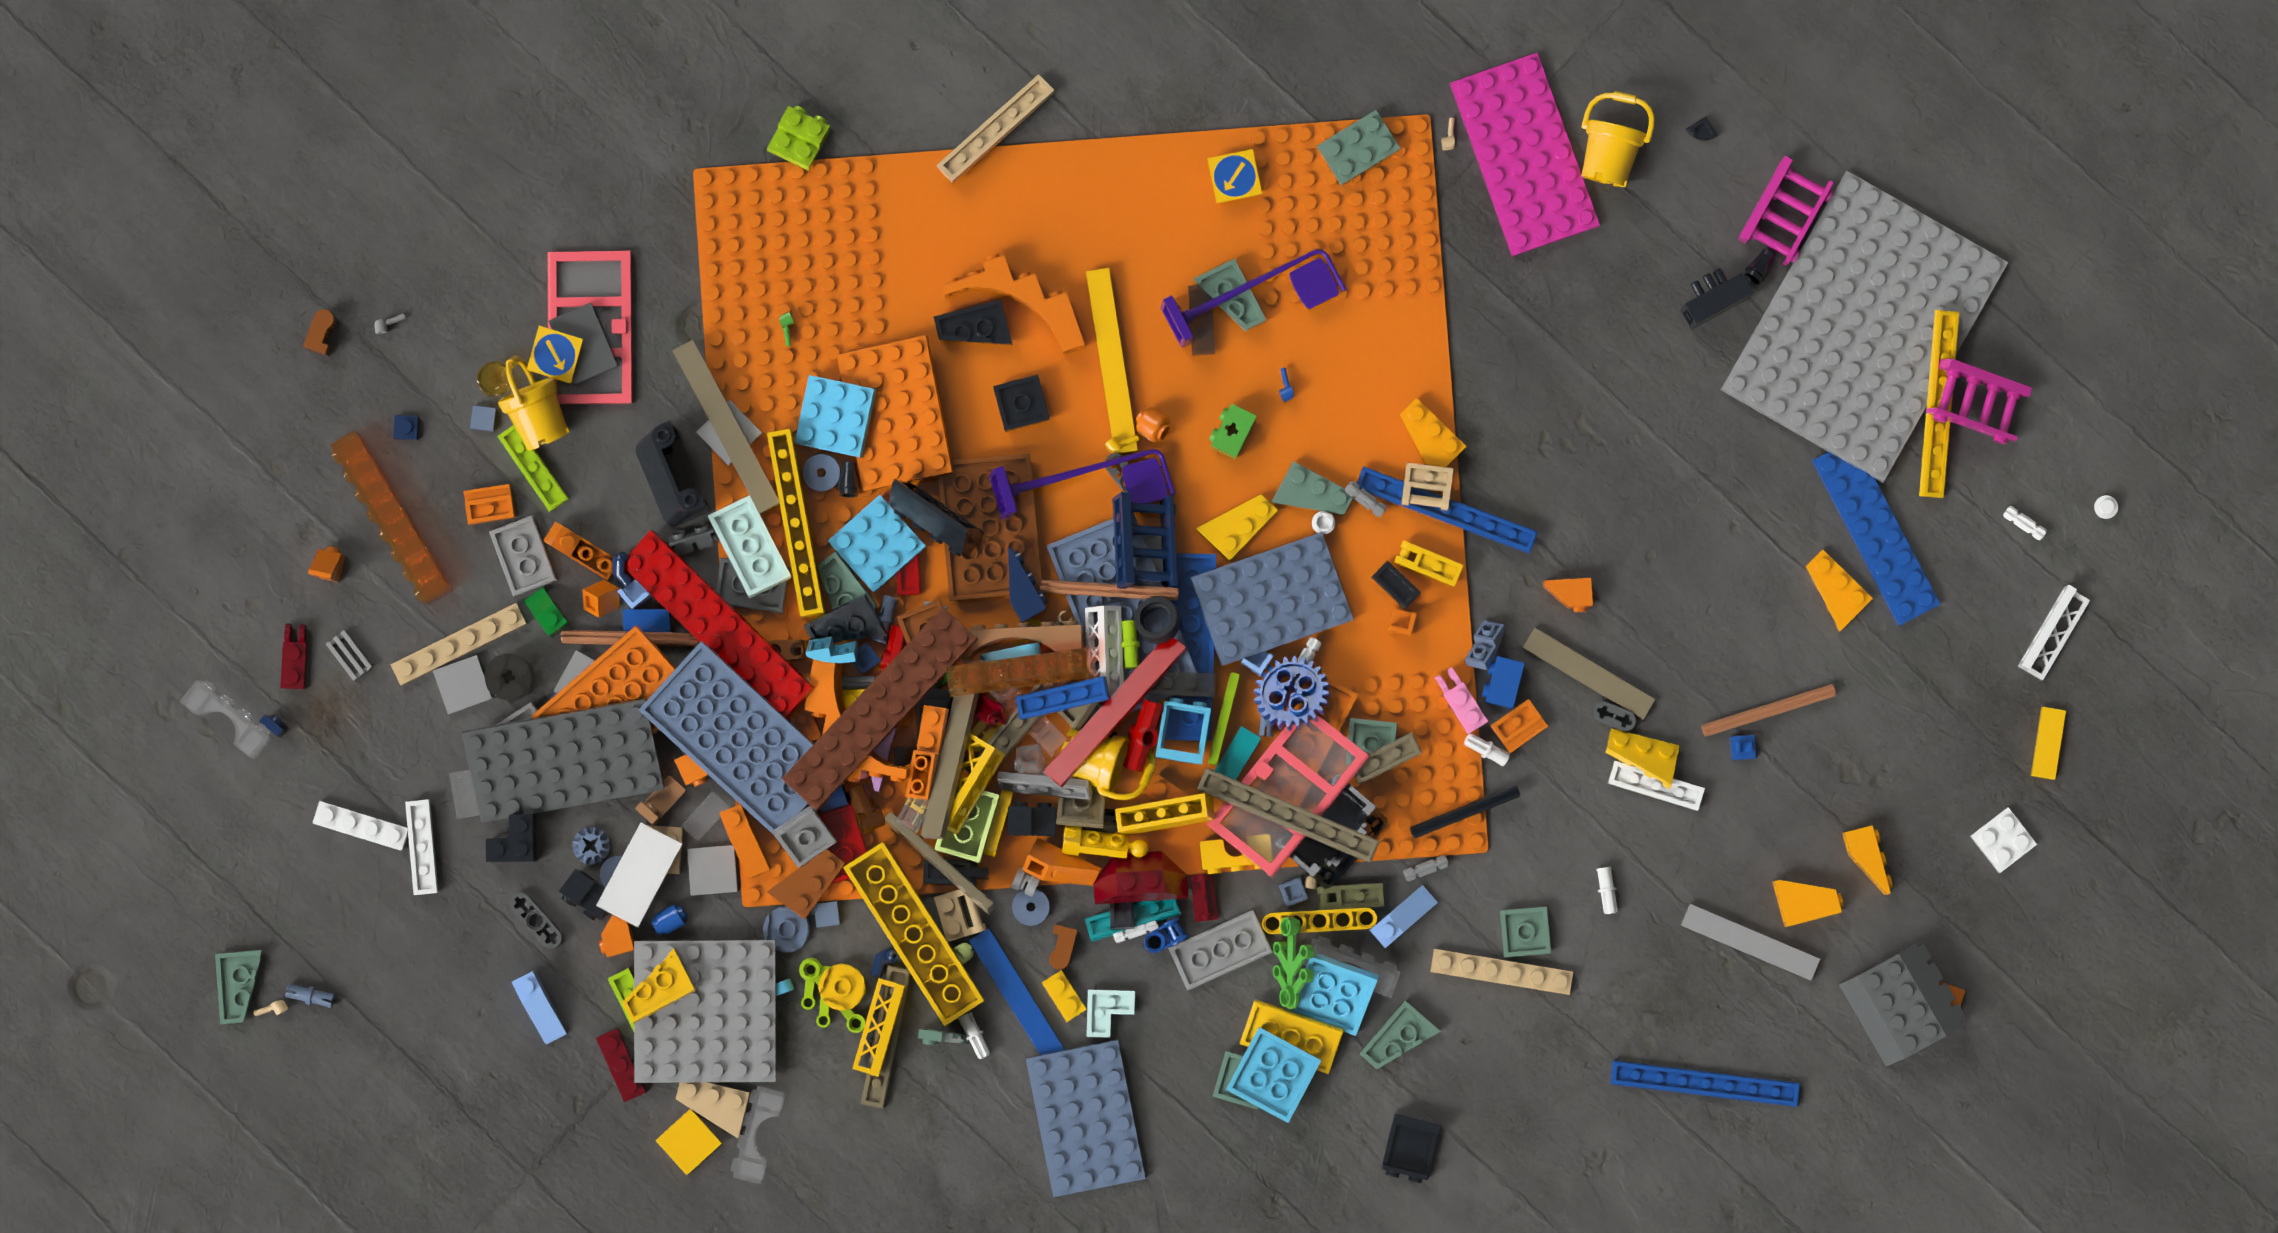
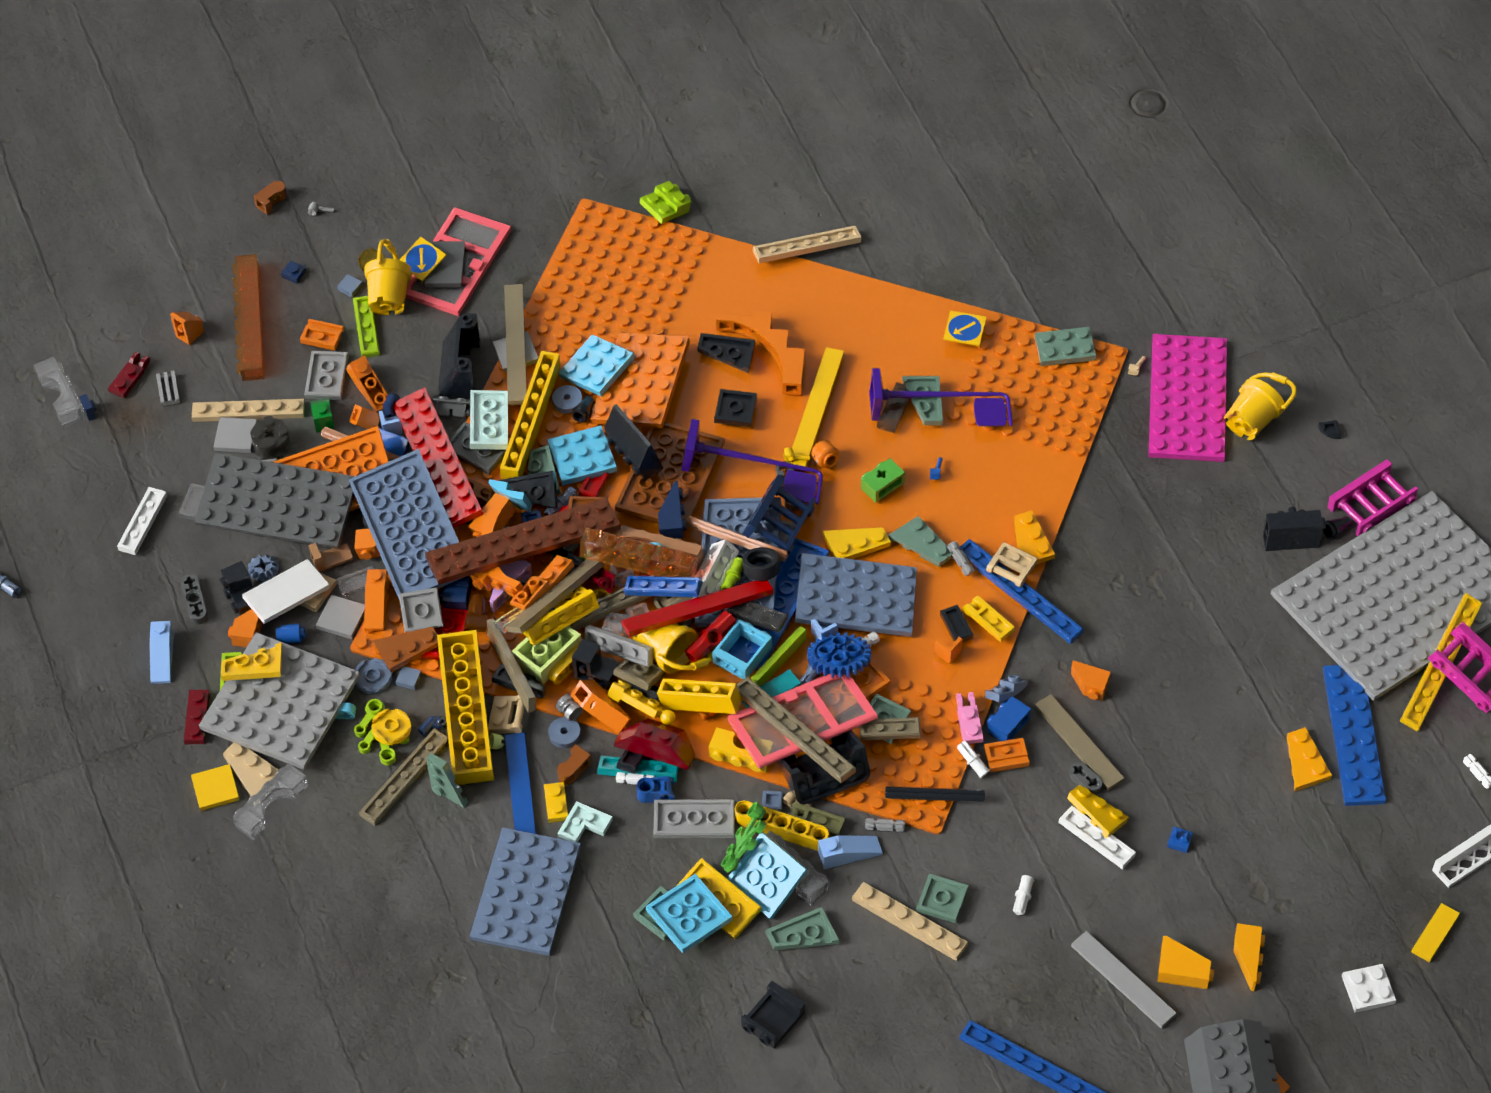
camera: 20 degrees right, 30 degrees down
(360, 825) = (107, 492): white plate -> none
(519, 845) = (209, 544): black brick -> none
(785, 321) = (594, 301): bright green hand -> none
(888, 1026) = (405, 766): yellow fence -> none
(974, 1035) = (472, 799): white axle -> none
(1204, 897) = (700, 776): dark red hinge -> none
(1323, 522) = (922, 563): white plate -> none
(1768, 710) = (1212, 821): nougat axle -> none

